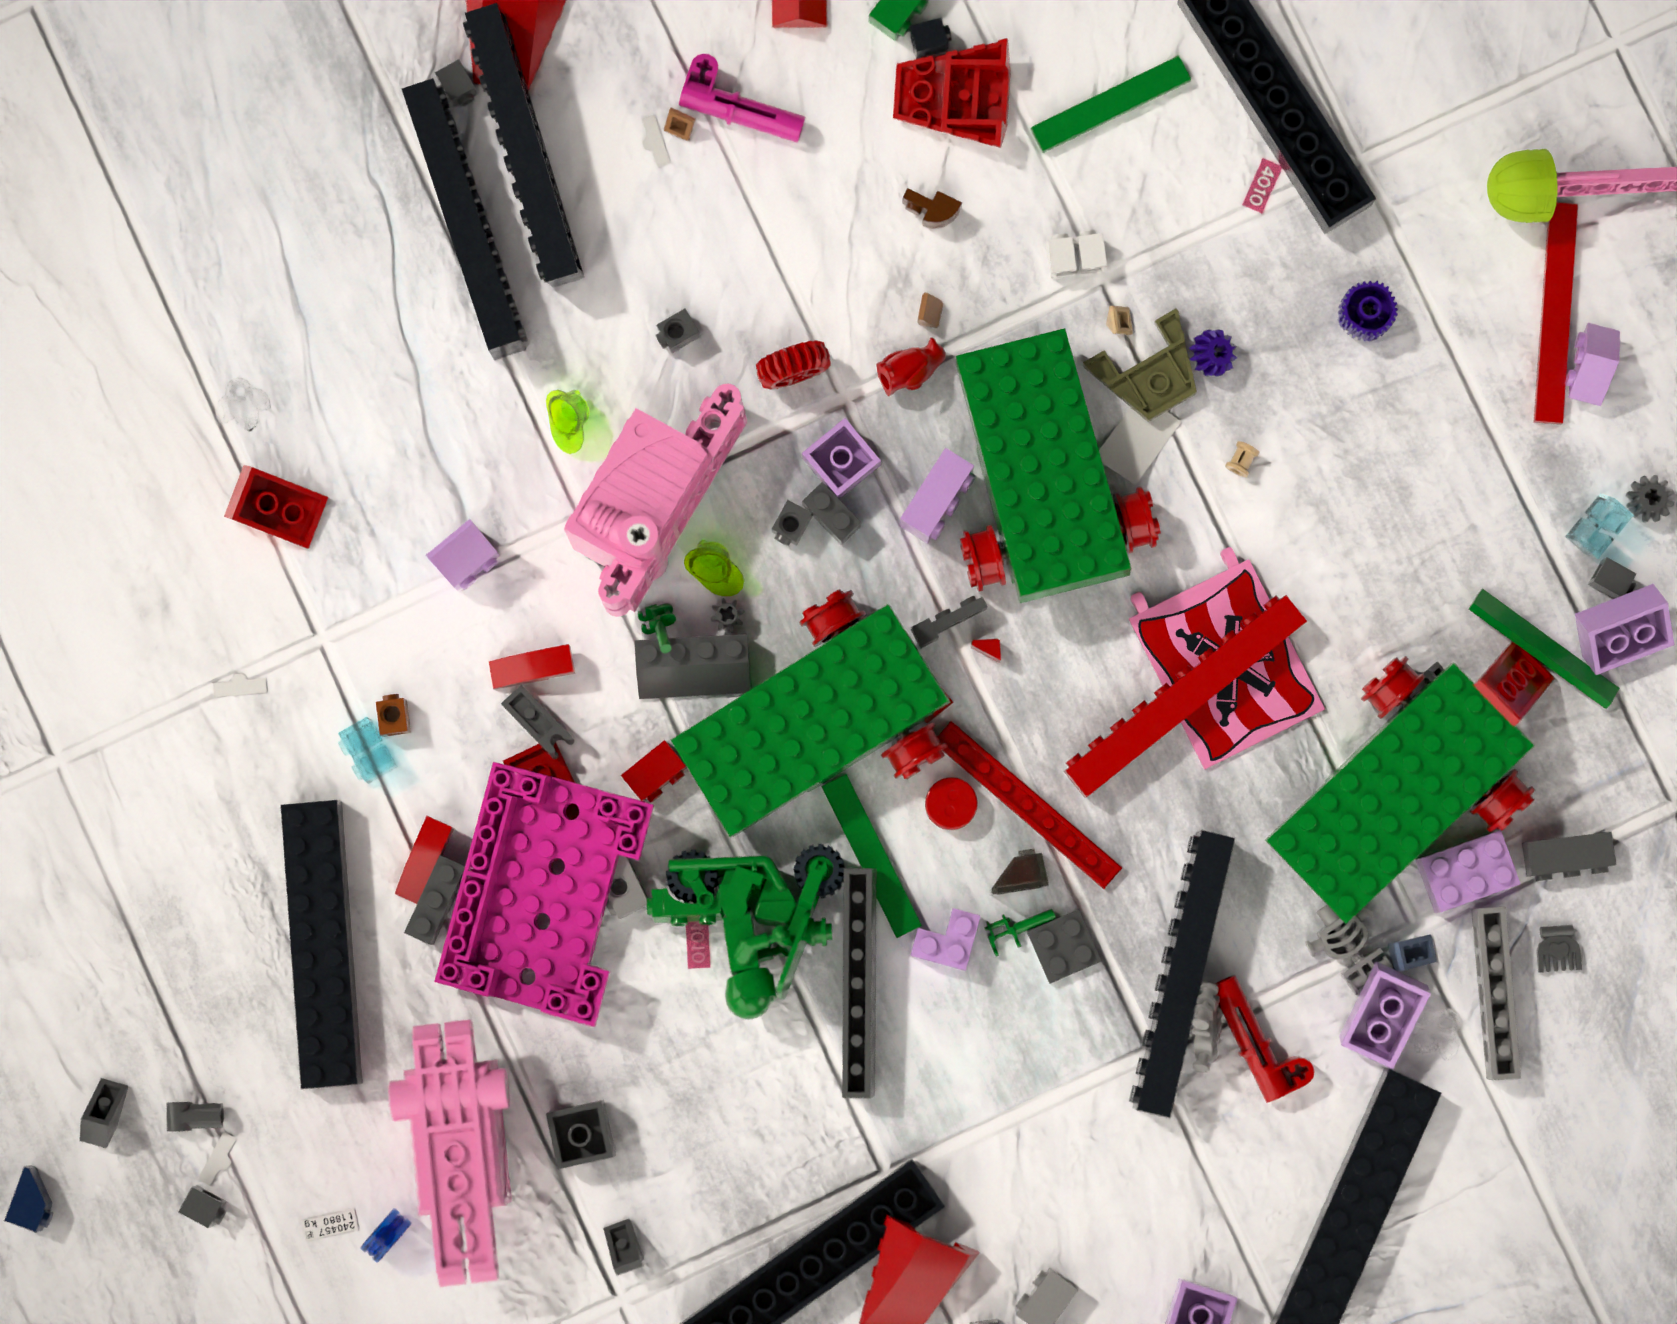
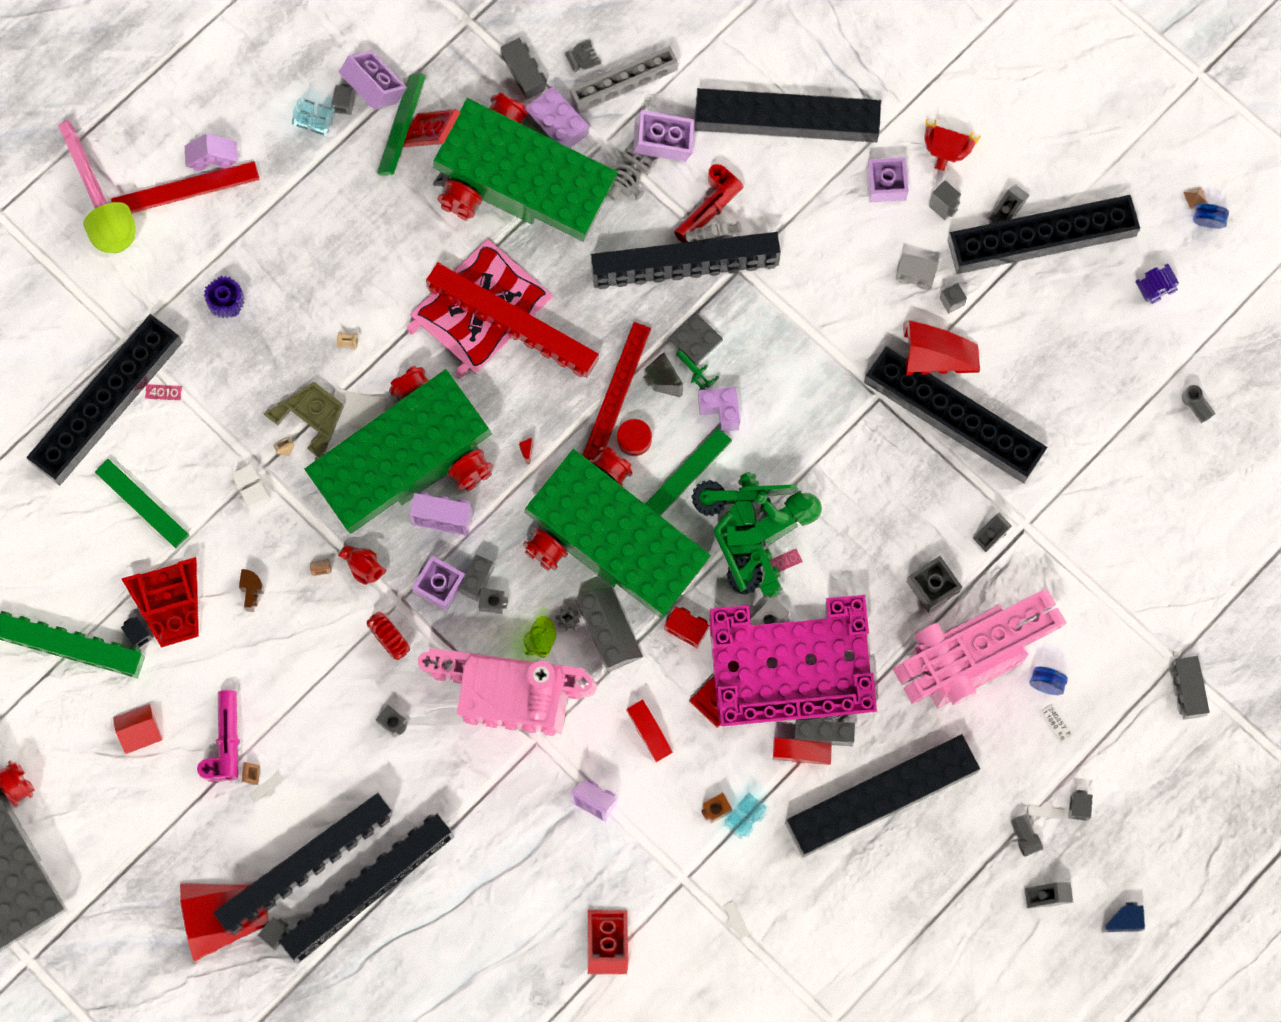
camera: 115 degrees left, 10 degrees down
(536, 720) = (683, 713): dark grey plate -> none
(566, 417) = (478, 769): clear neon green piece -> none
(659, 618) = (591, 658): green piece -> none
(859, 983) = (769, 448): dark grey brick -> none
(927, 631) = (528, 489): dark grey plate -> none
(1213, 352) = (285, 380): dark purple gear -> none
(1412, 953) = (619, 137): sand blue slope -> none
(1657, 493) = (279, 100): dark grey gear -> none

